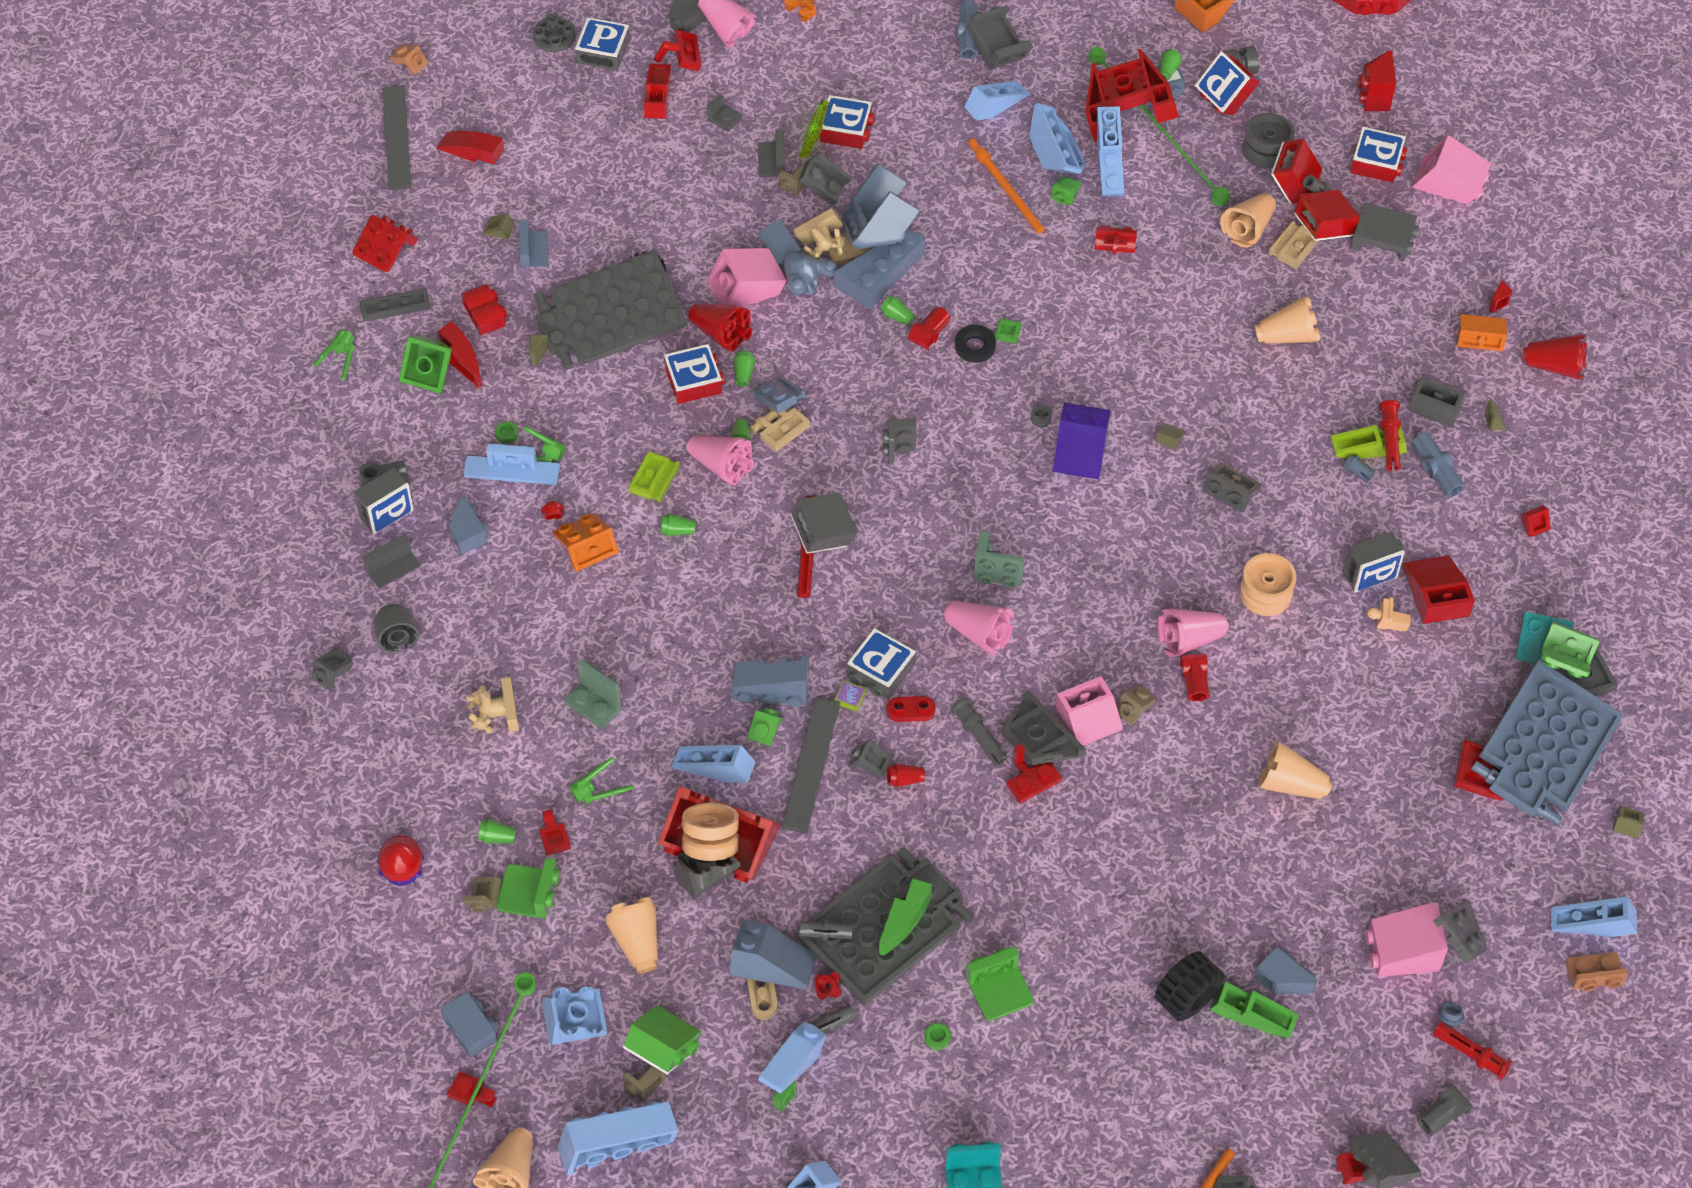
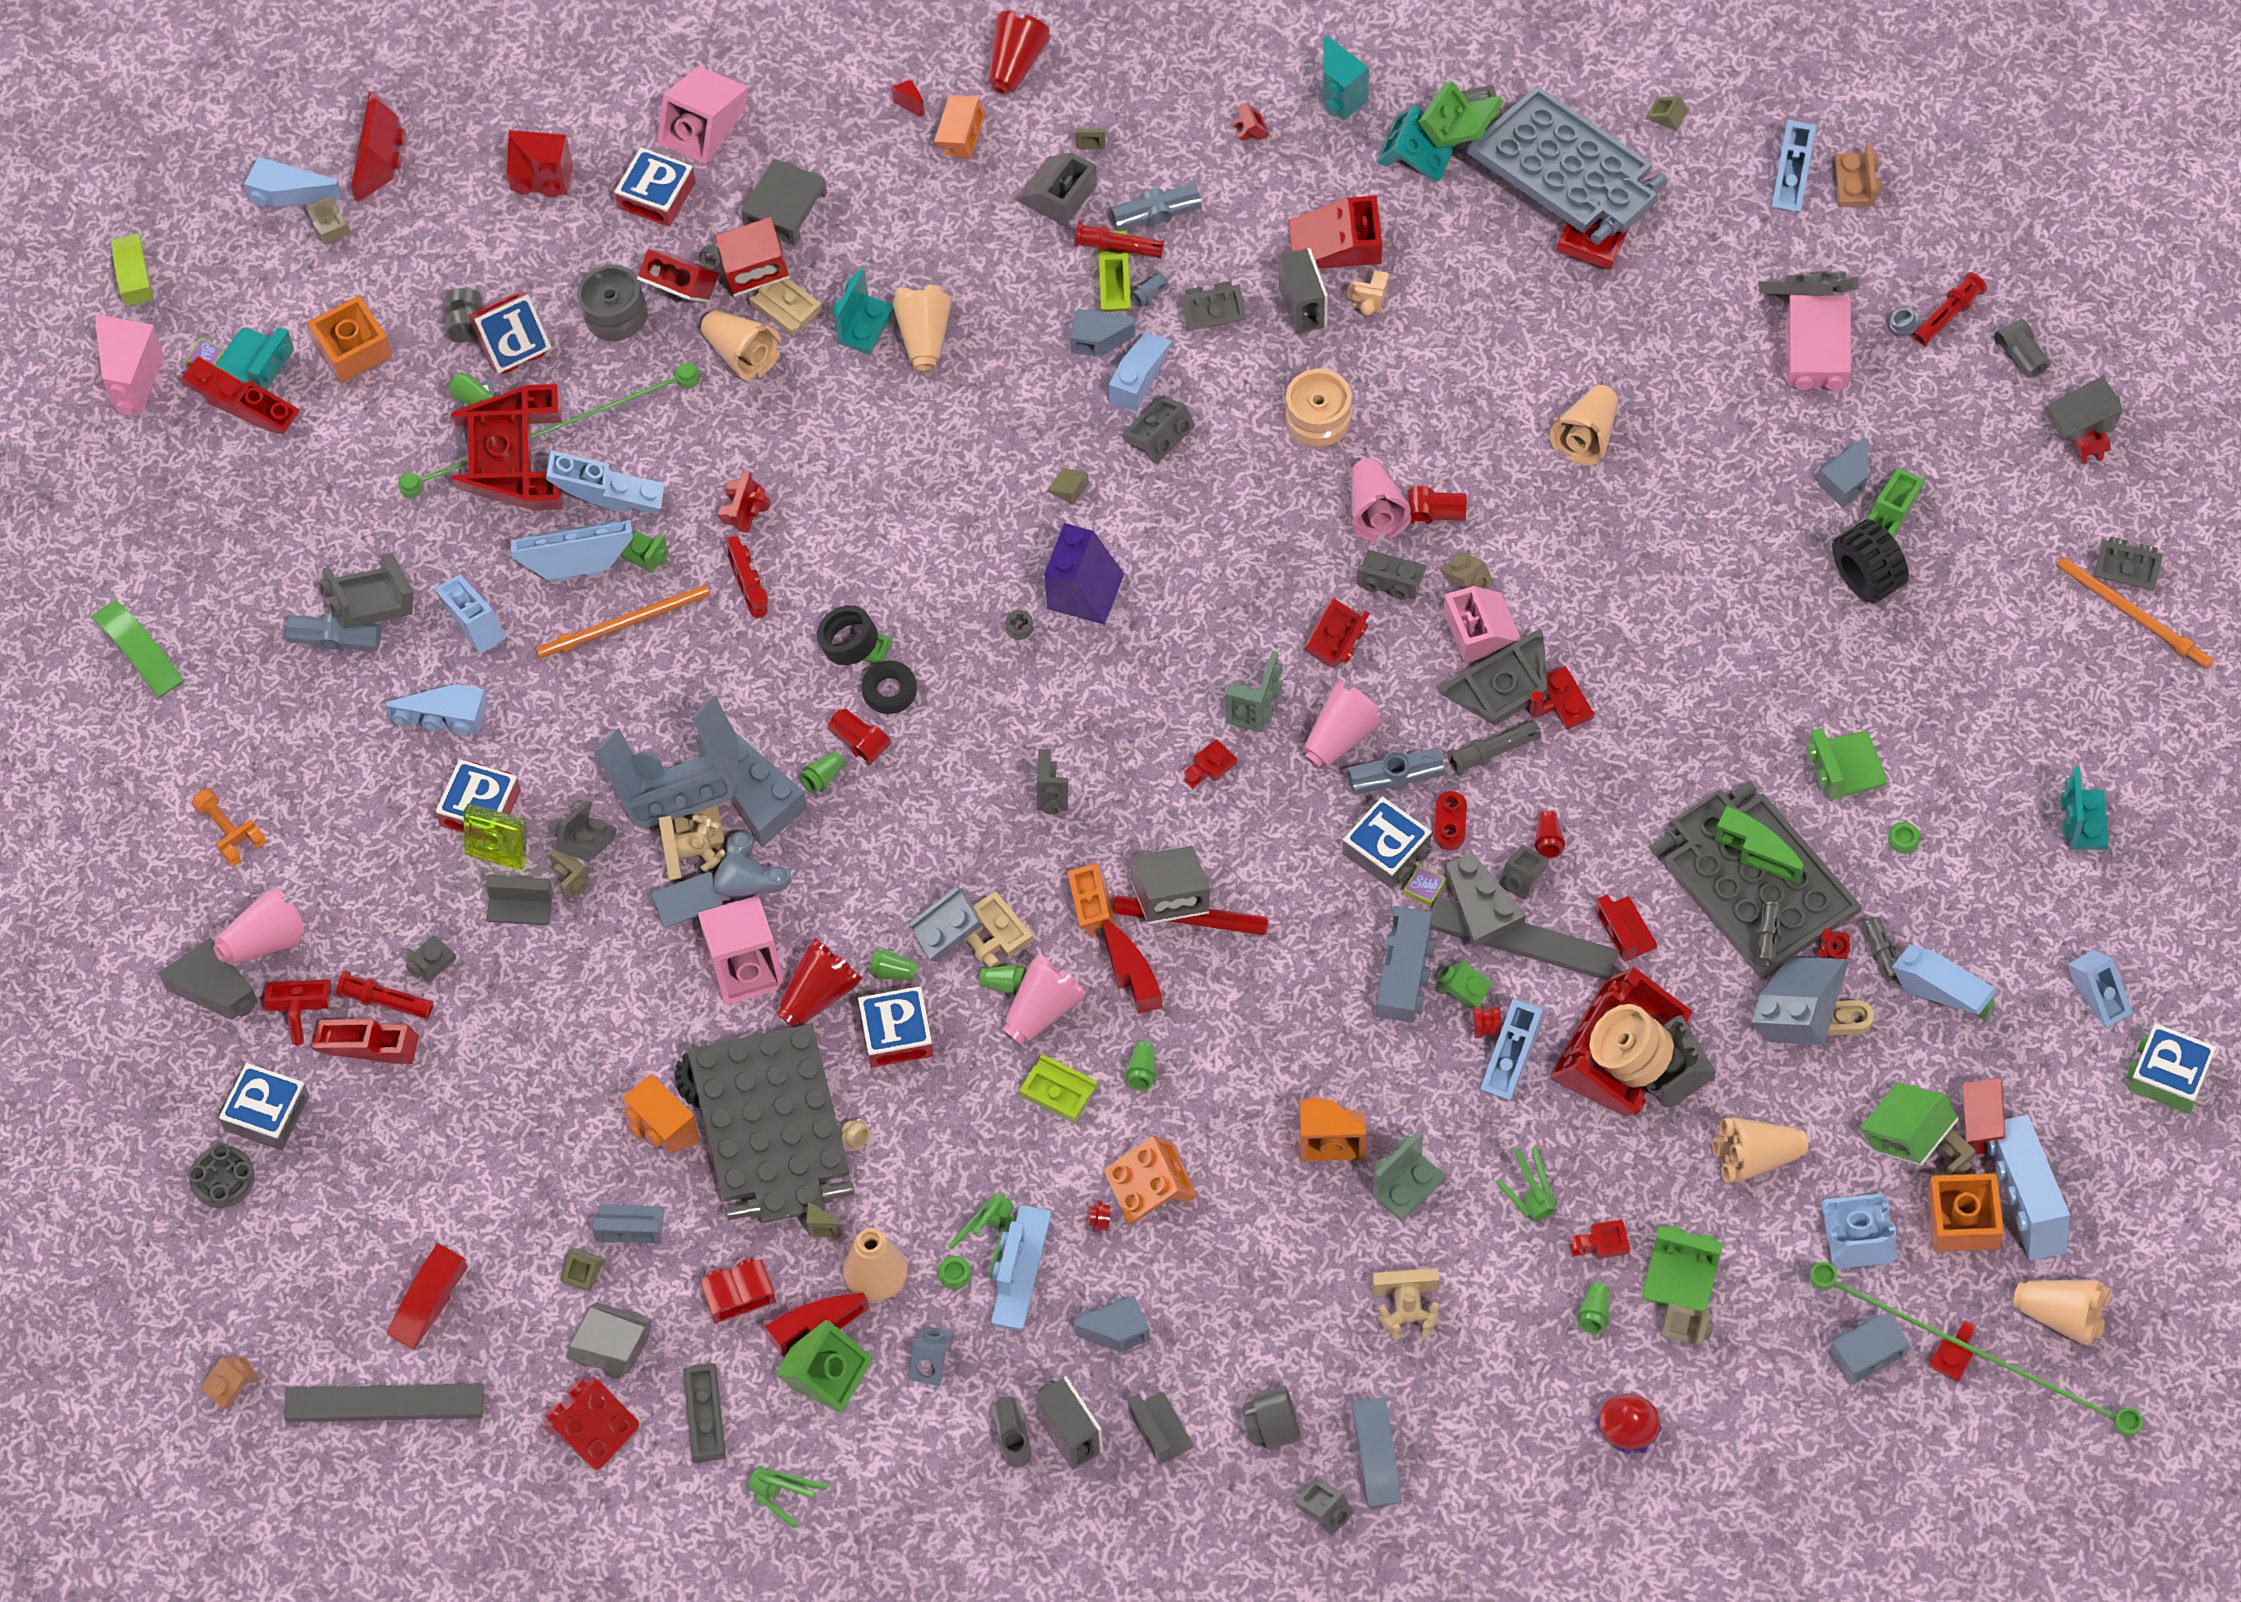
camera: 80 degrees left, 5 degrees up
(372, 696) = (1376, 1452): none -> sand blue slope
(444, 420) = (932, 1346): none -> sand blue bracket
(445, 247) = (610, 1340): none -> slope
(504, 379) = (875, 1266): none -> light nougat cone
(587, 1085) = (1965, 1212): none -> orange slope
(604, 243) = (659, 1117): none -> orange slope
(608, 359) = (852, 1131): none -> tan plate
(626, 636) = (1331, 1131): none -> orange slope
(677, 1095) = (1983, 1113): none -> panel
(694, 80) = (370, 993): none -> red pin
(733, 736) = (1487, 1022): none -> red wheel
(755, 509) = (1132, 969): none -> red slope
(810, 480) = (1091, 897): none -> orange hinge
(828, 833) = (1625, 927): none -> red panel
(837, 731) = (1483, 902): none -> wing
(917, 95) = (447, 707): none -> light blue slope
(938, 548) = (1211, 762): none -> red plate
(950, 676) = (1414, 768): none -> sand blue piece
(1009, 319) = (857, 649): none -> black tyre
(1052, 247) = (747, 579): none -> red hinge
(1064, 615) = (1336, 633): none -> red bracket
(1127, 651) = (1390, 575): none -> dark grey bracket
(1281, 466) = (1138, 371): none -> light blue slope
(1290, 282) = (860, 317): none -> teal bracket
(1310, 436) = (1100, 332): none -> sand blue slope
(1351, 510) = (1213, 307): none -> dark grey bracket
(1587, 570) = (1343, 80): none -> teal slope

